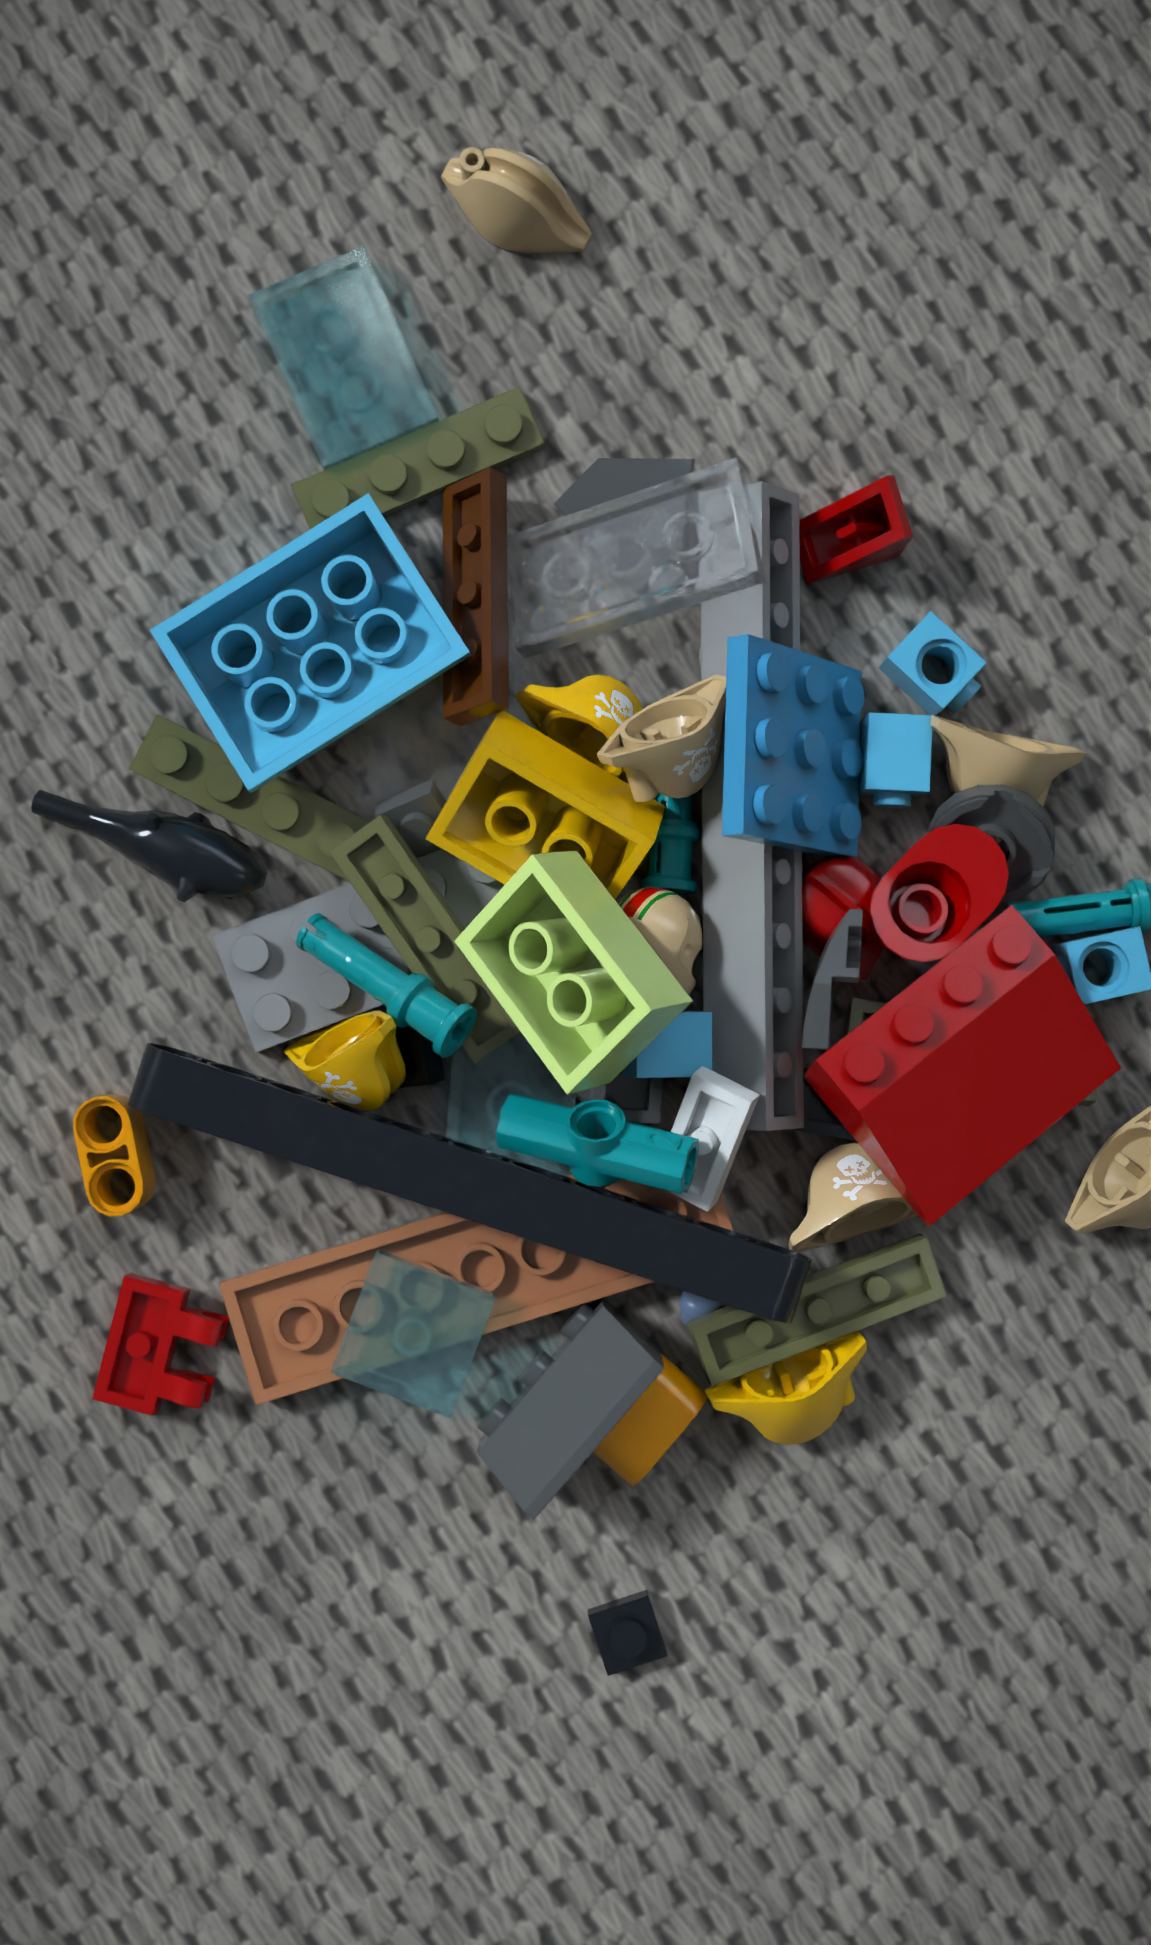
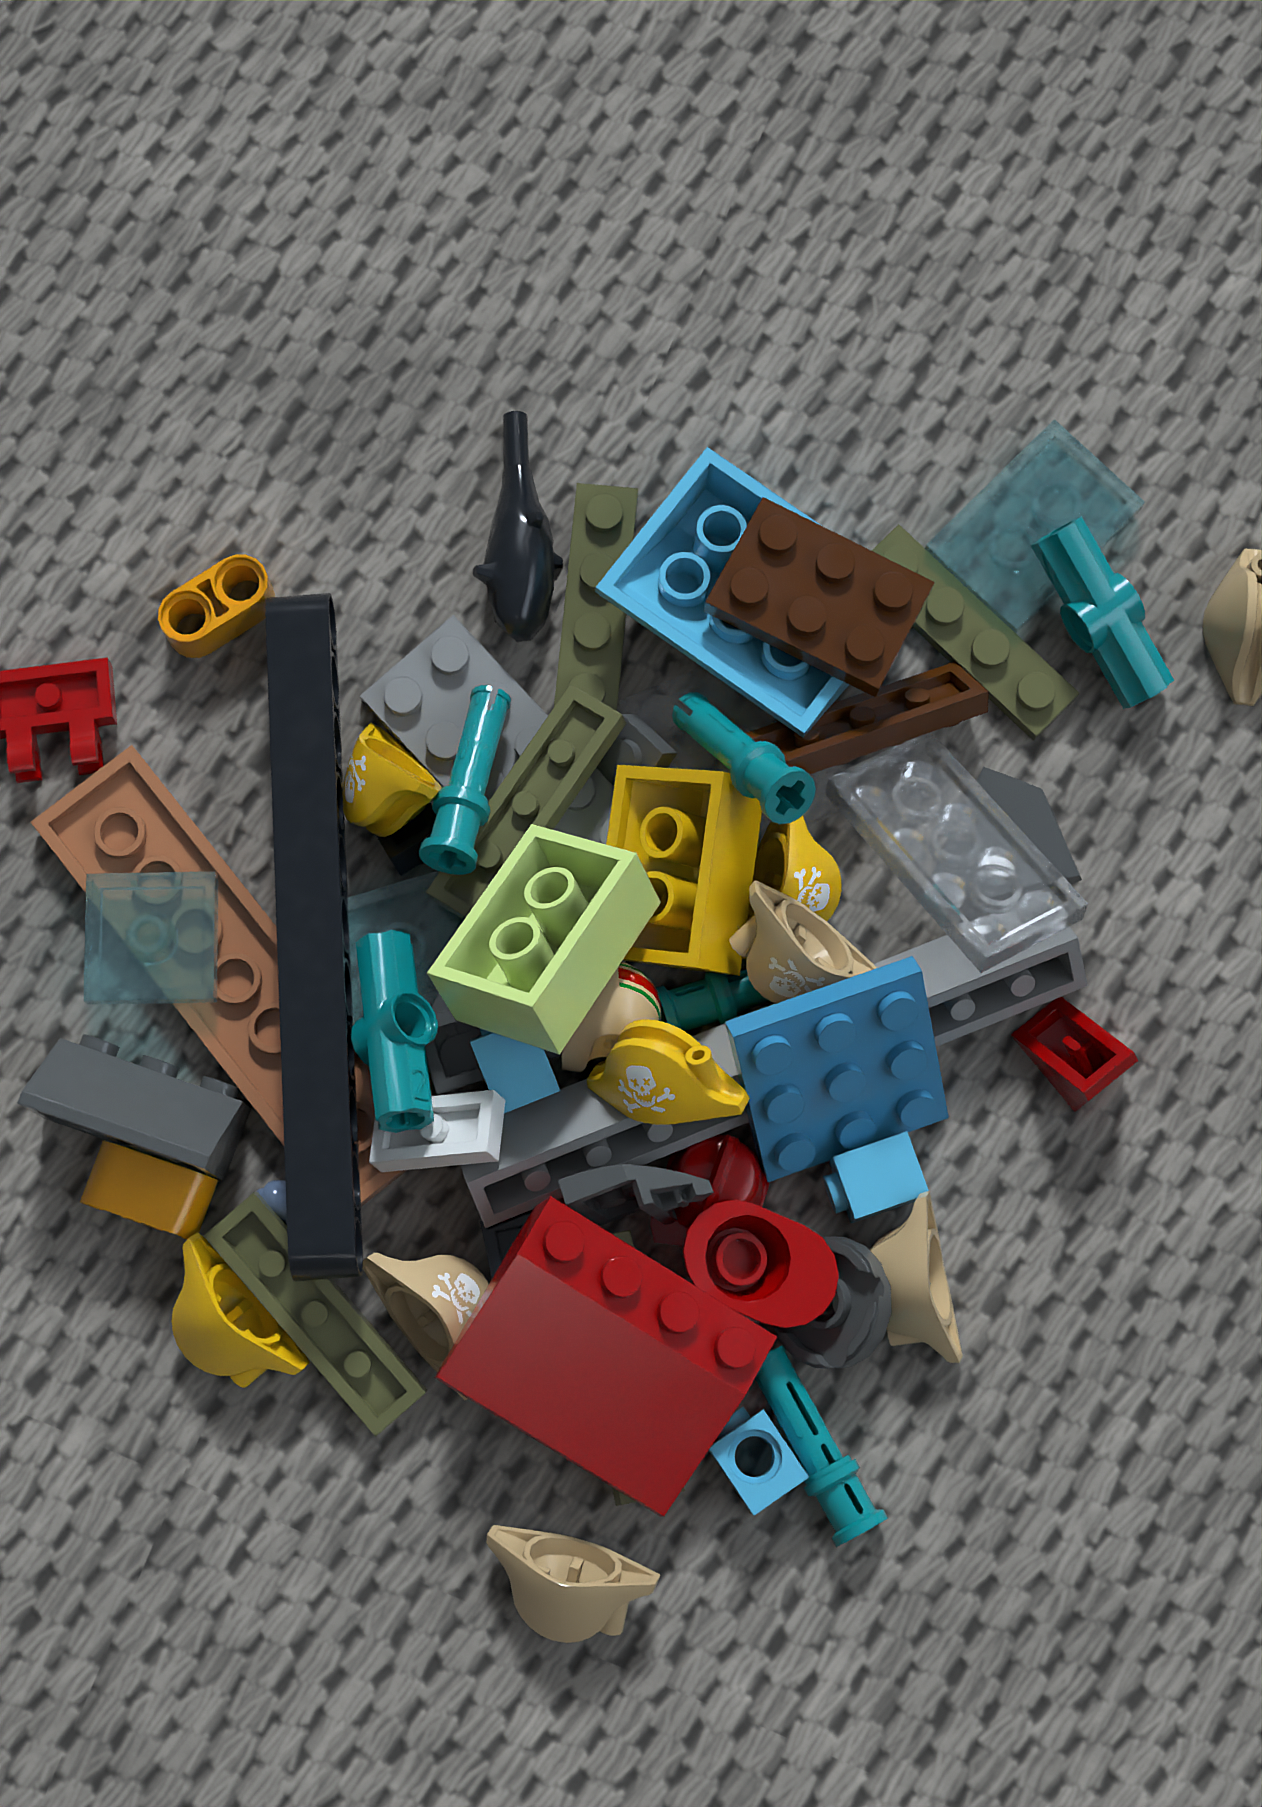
camera: 70 degrees right, 10 degrees down
(343, 583) = (818, 596): none -> reddish brown plate
(455, 329) = (1102, 613): none -> teal piece
(489, 710) = (754, 767): none -> teal pin
(745, 912) = (665, 1077): none -> yellow hat
(936, 639) = (1000, 1161): medium azure brick -> none

